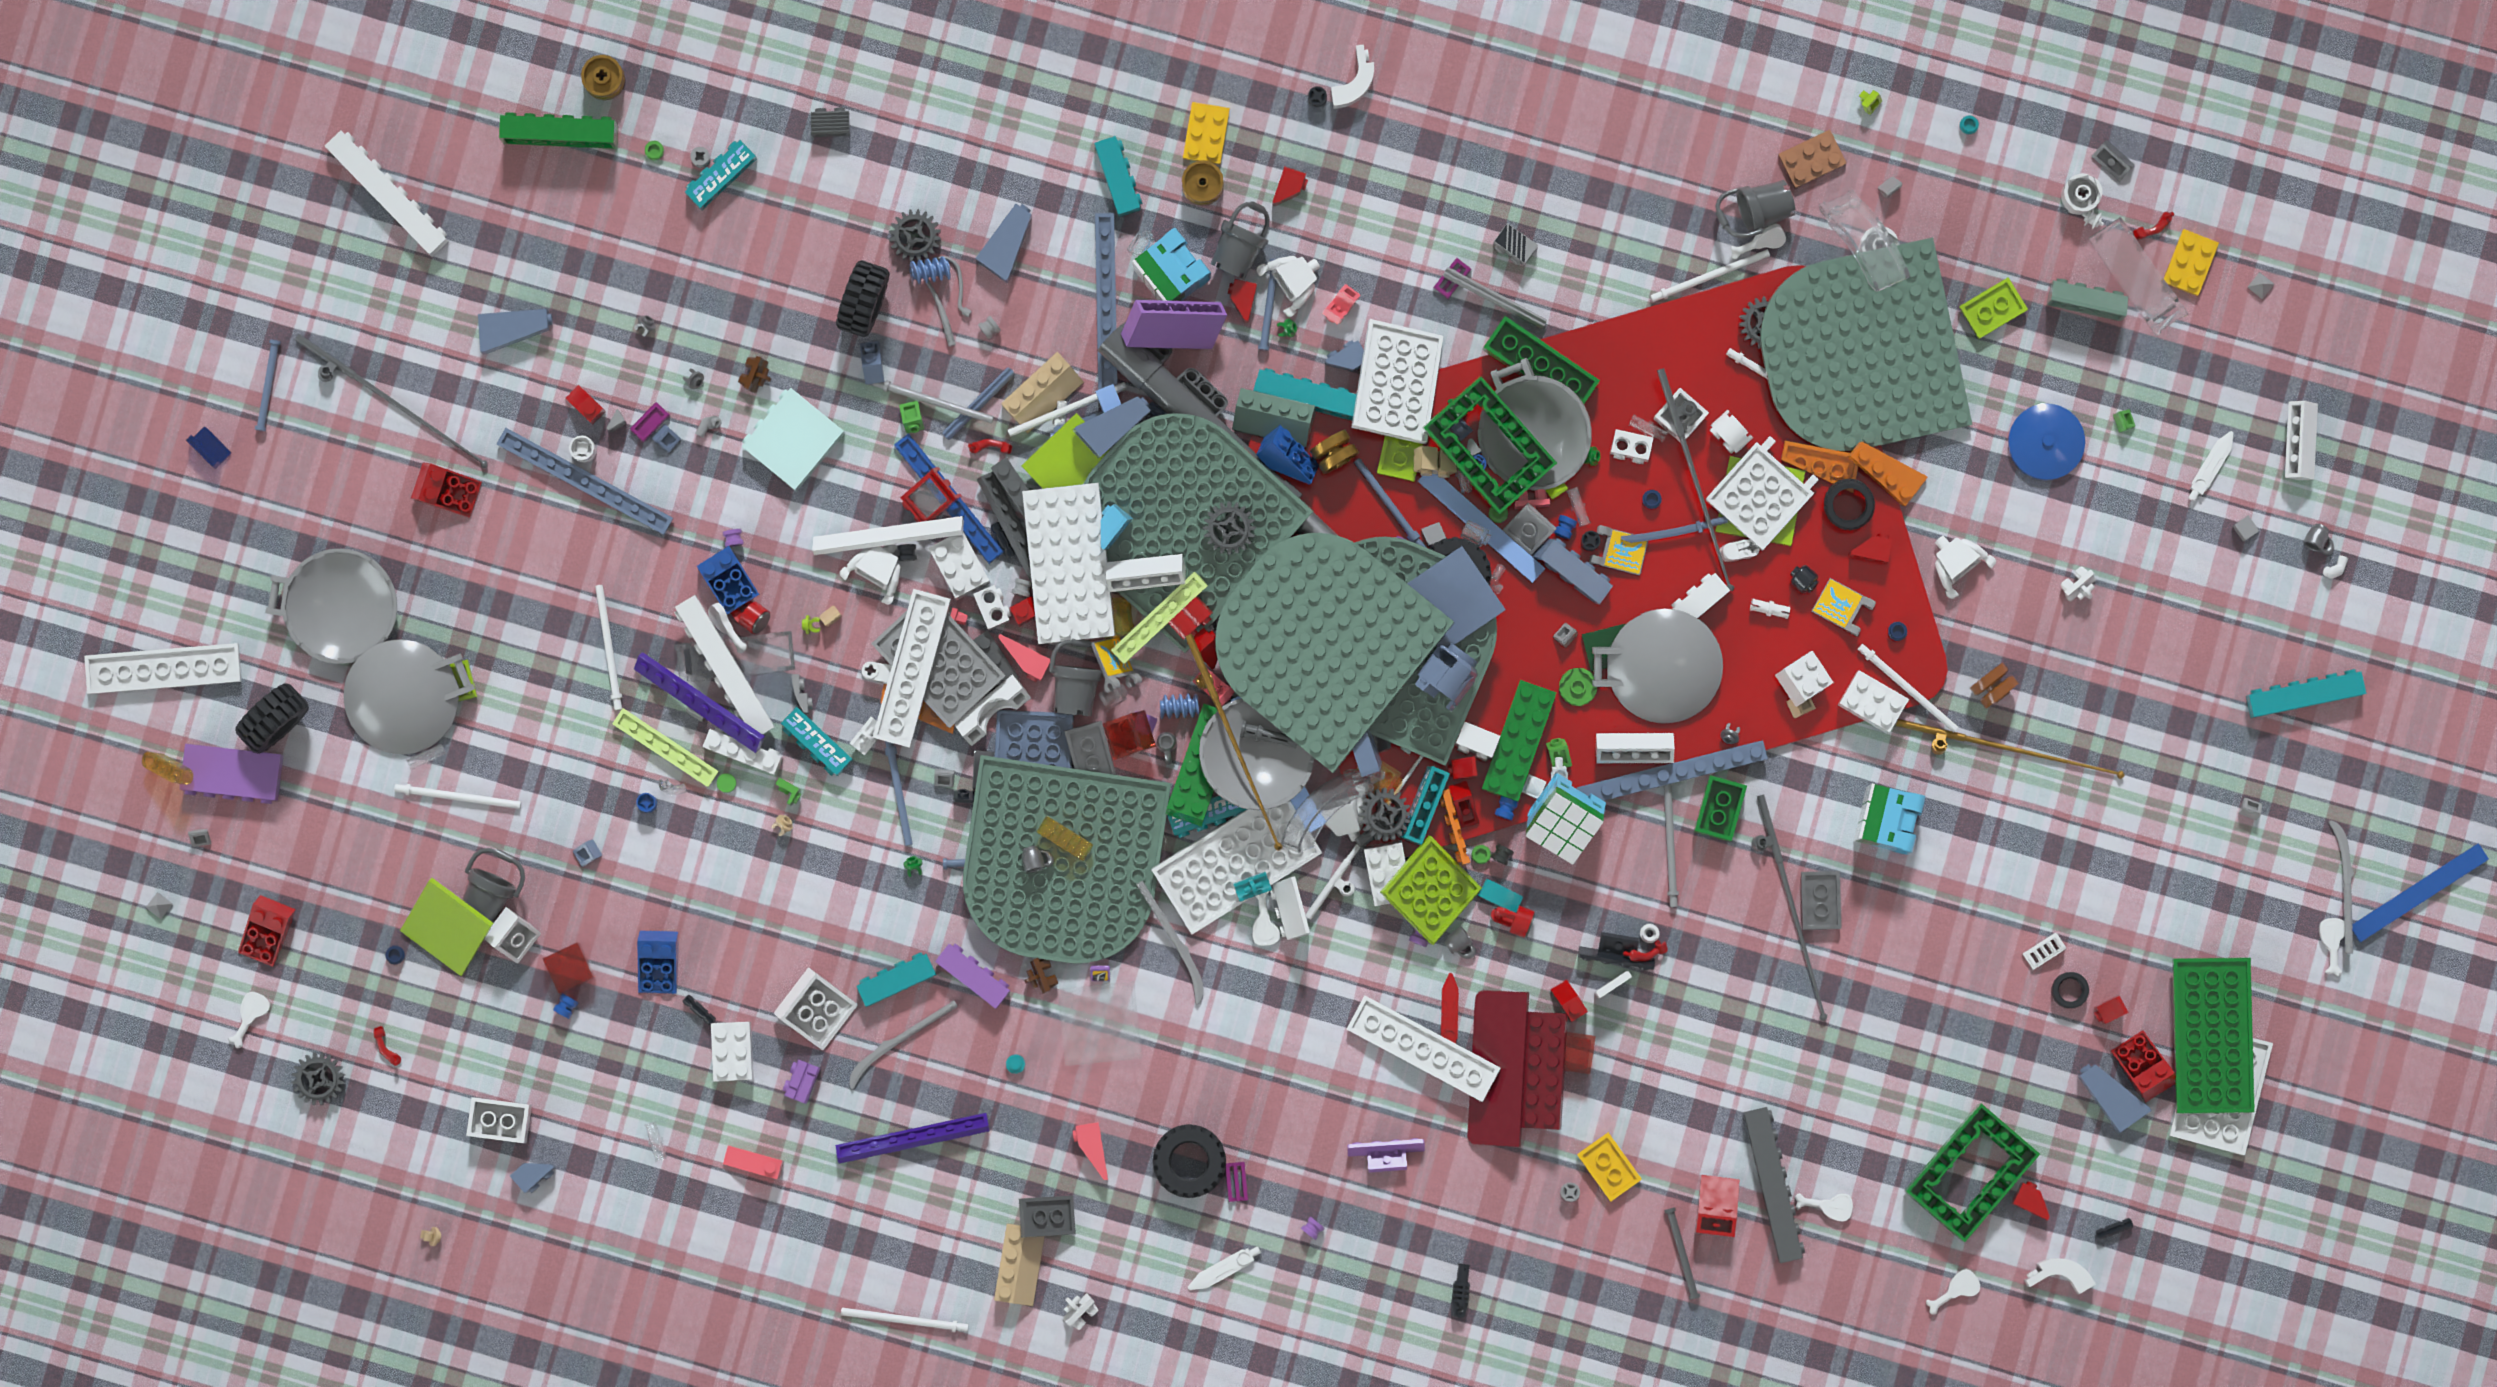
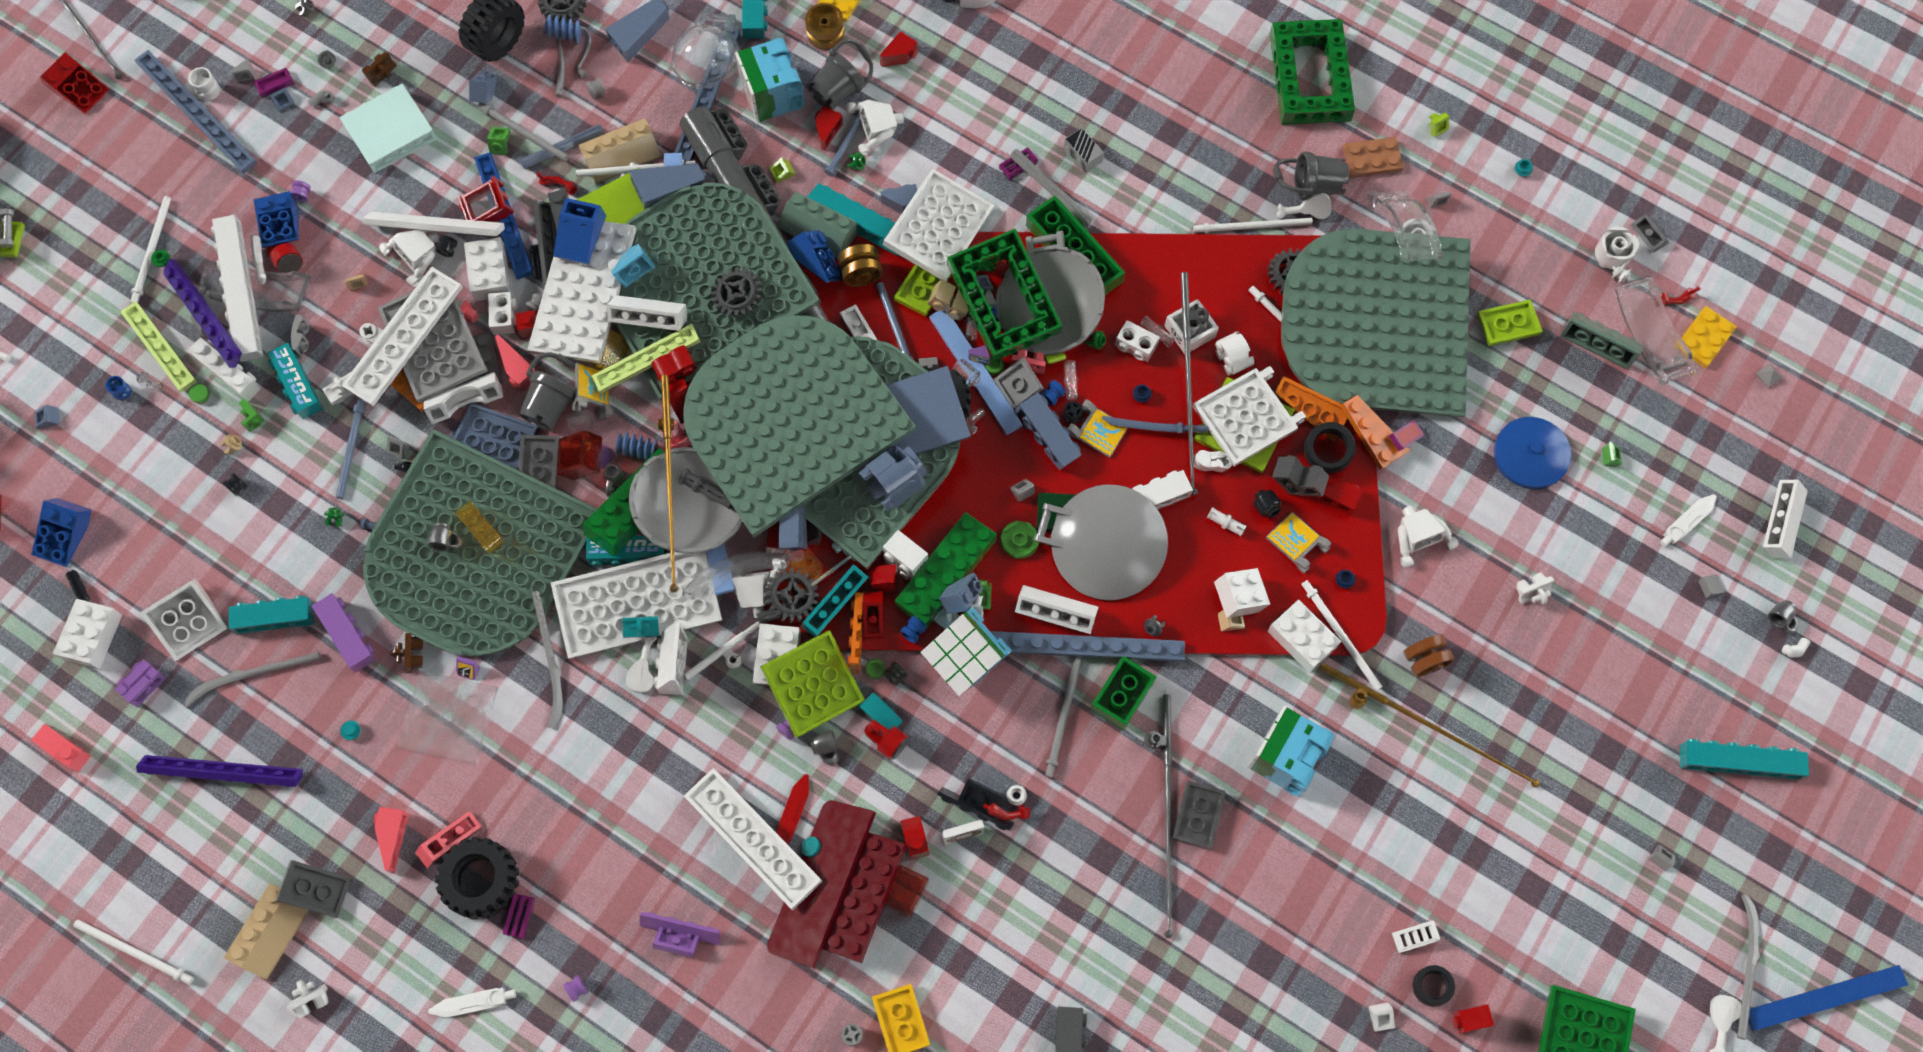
camera: 15 degrees right, 15 degrees down
(585, 404) = (225, 54): red slope -> none
(626, 655) = (160, 258): none -> green plate
(805, 864) = (235, 484): none -> black wheel
(807, 624) = (332, 280): lime plate -> none
(1048, 511) = (578, 230): none -> blue slope
(1090, 252) = (706, 52): none -> clear windscreen
(1147, 1135) = (436, 846): none -> coral slope
(1173, 324) = (753, 117): medium lavender brick -> none
(1213, 360) = (782, 170): none -> lime slope
(1341, 304) = (911, 155): coral brick -> none
(1353, 516) = (856, 323): none -> white plate
(1477, 1038) = (811, 846): none -> teal piece
(1483, 510) = (979, 355): none -> medium lavender slope
(1543, 764) = (961, 594): none -> sand blue slope
(1713, 127) = (1314, 109): none -> green brick
(1829, 546) = (1300, 479): none -> dark grey brick
(1920, 464) = (1406, 435): none -> tile
(2031, 1031) = (1382, 1017): none -> white slope

